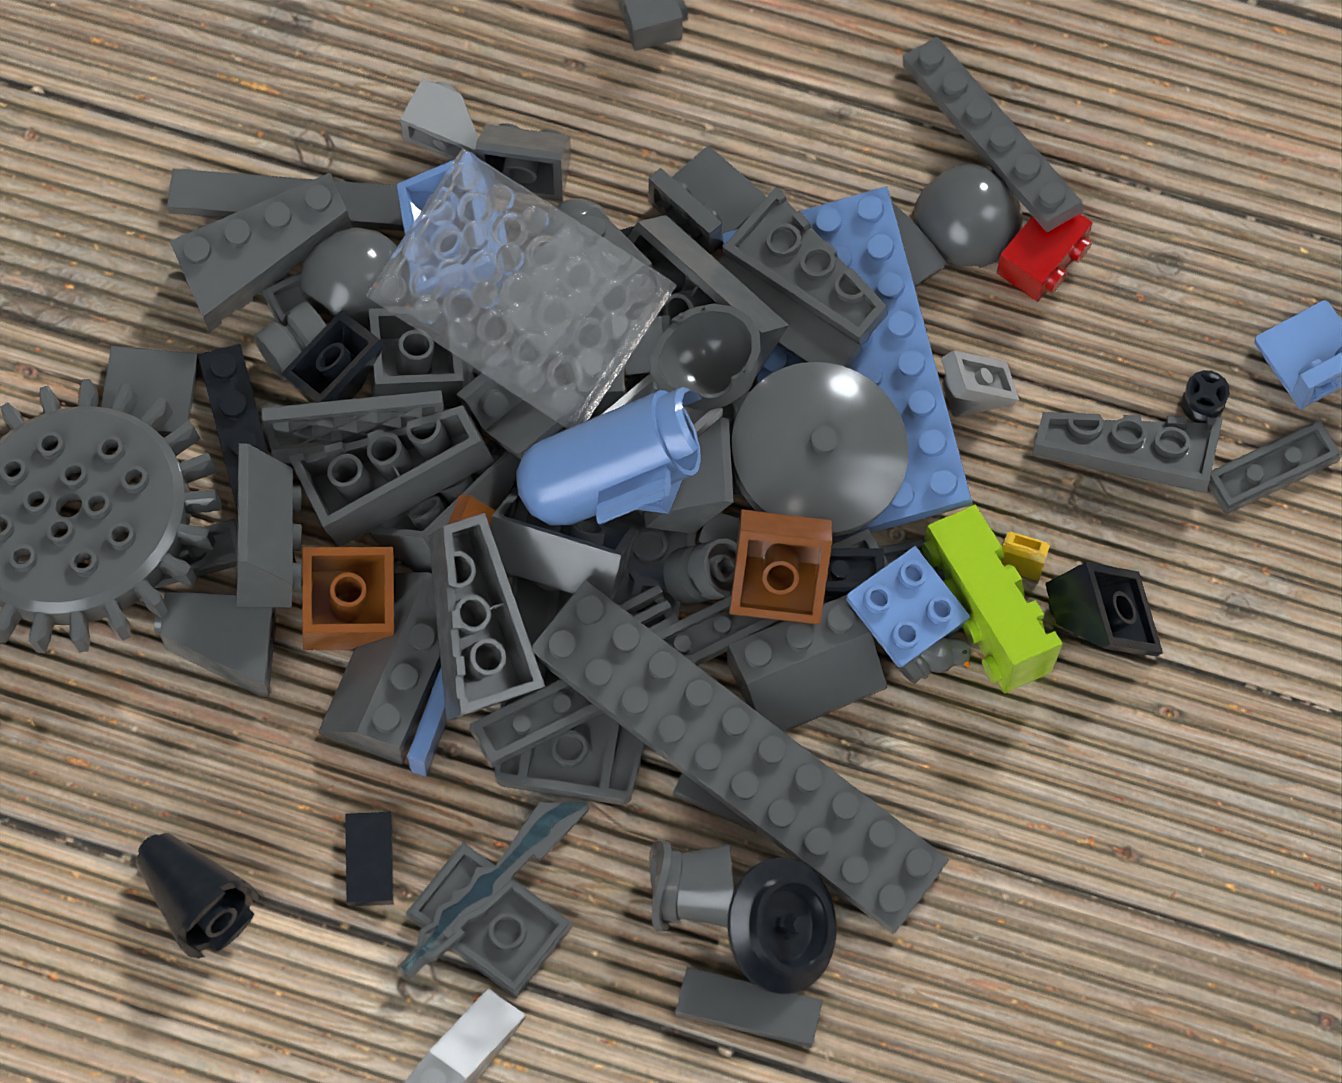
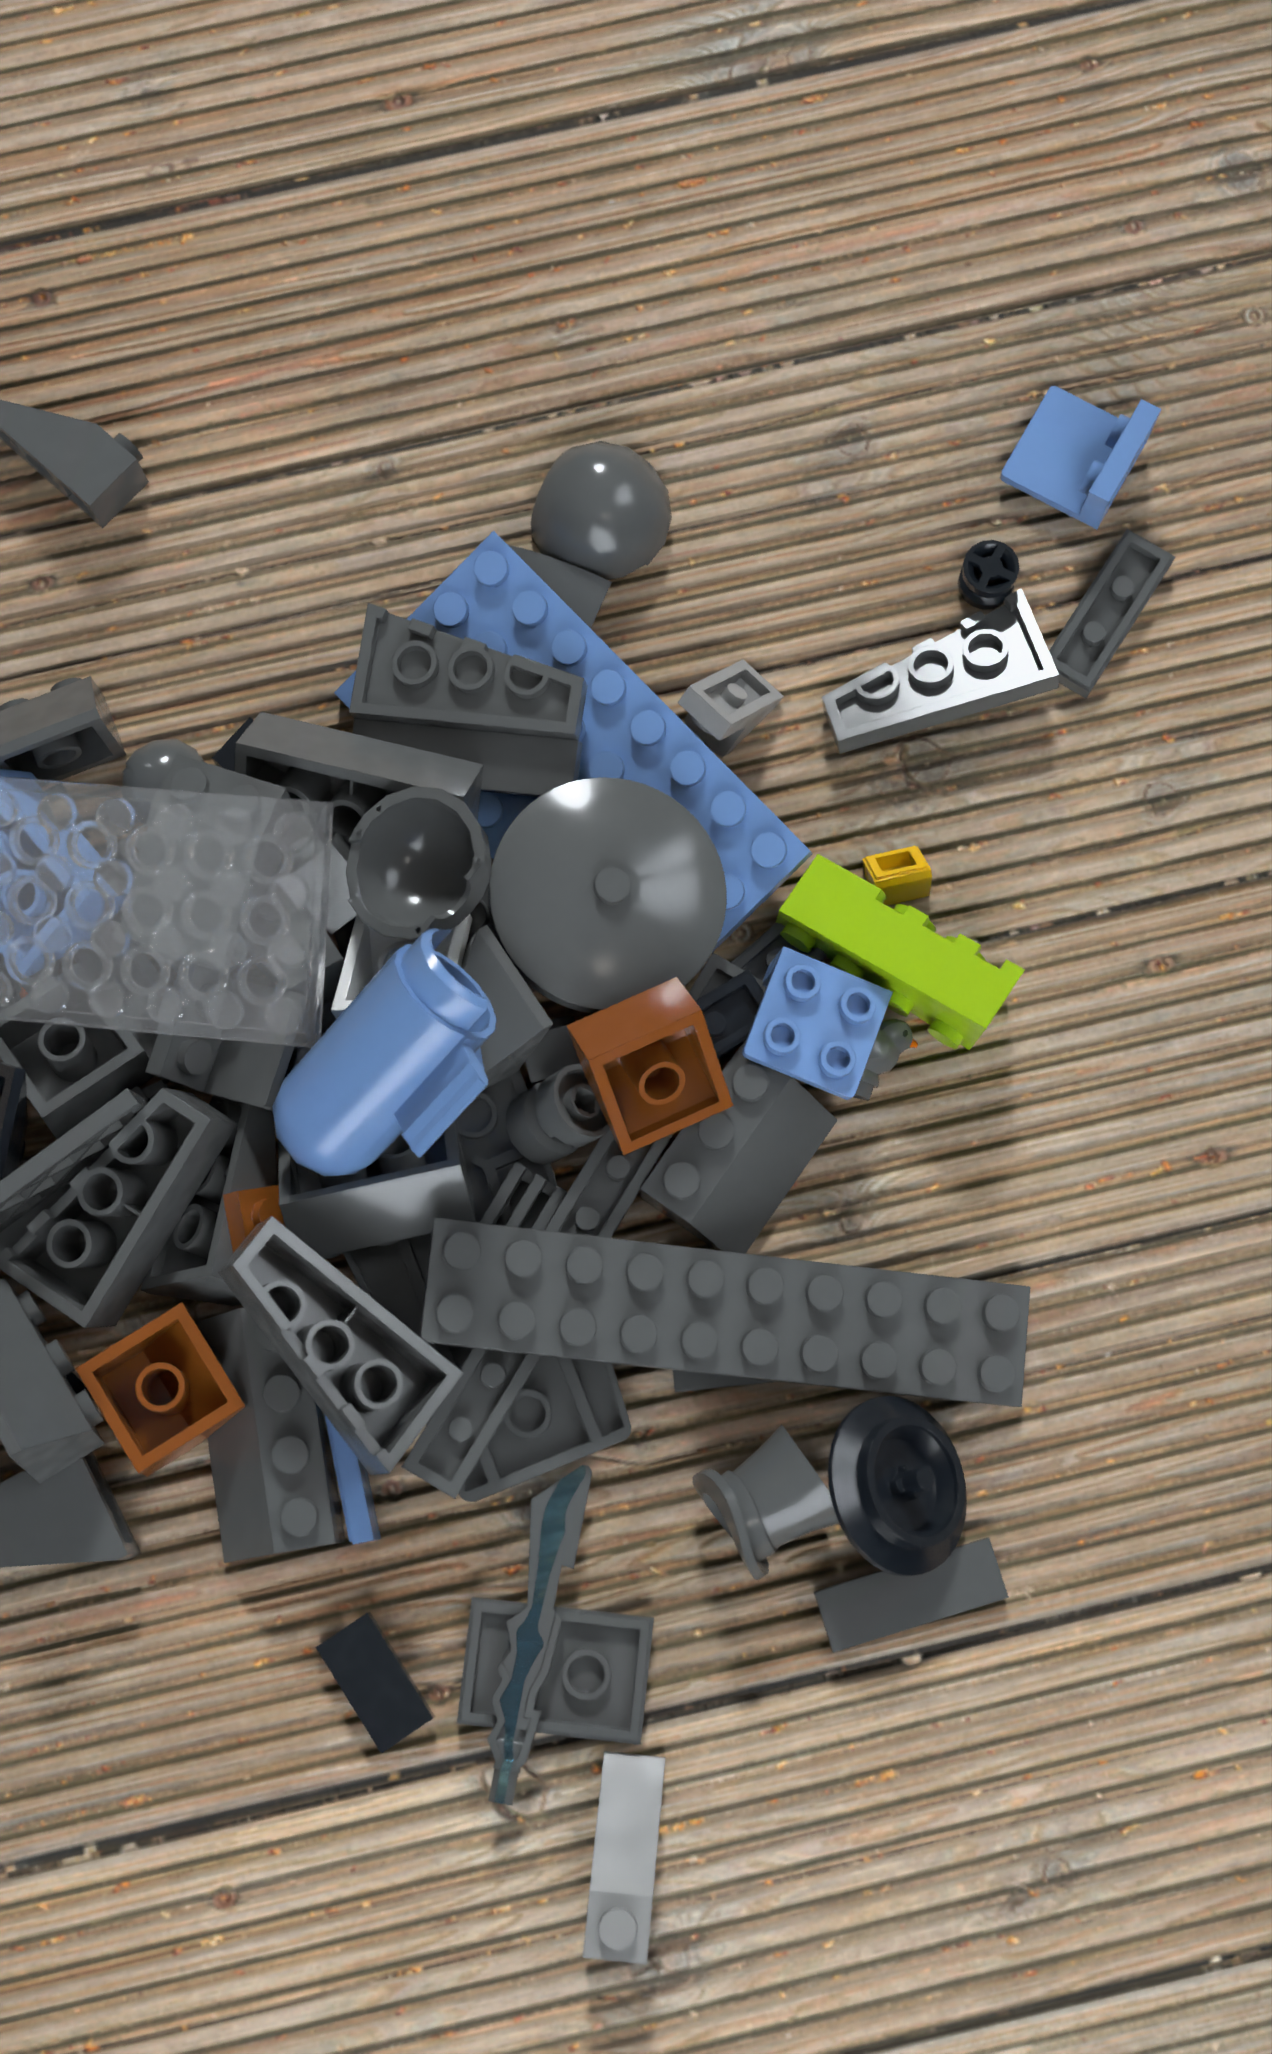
camera: 25 degrees left, 10 degrees up
(195, 894) = (196, 1859): black cone -> none
(705, 198) = (291, 660): dark grey bracket -> none
(992, 134) = (574, 400): dark grey plate -> none
(1038, 258) = (709, 501): red brick -> none
(1105, 608) = (1029, 892): black slope -> none

